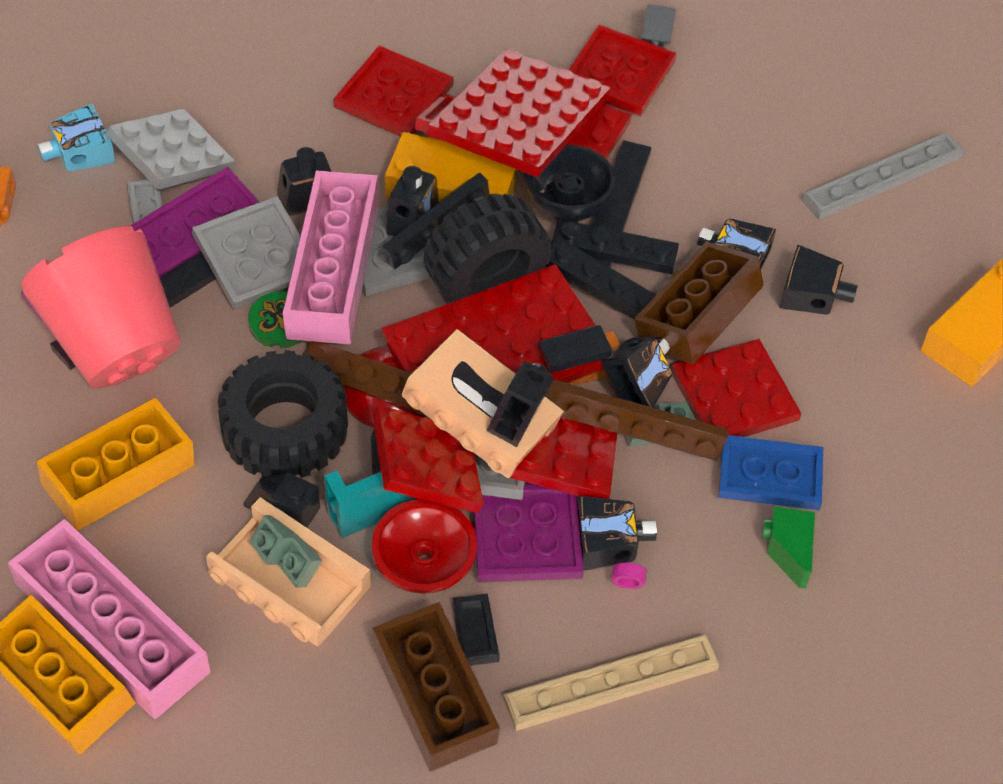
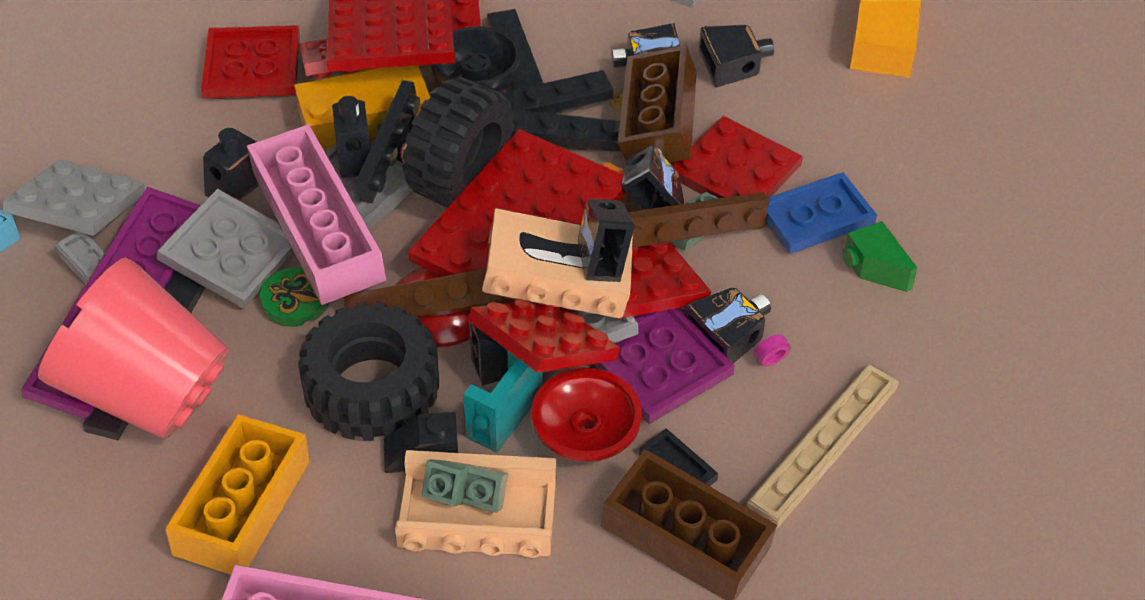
camera: 30 degrees left, 5 degrees down
(575, 349) = (596, 182): black tile -> none

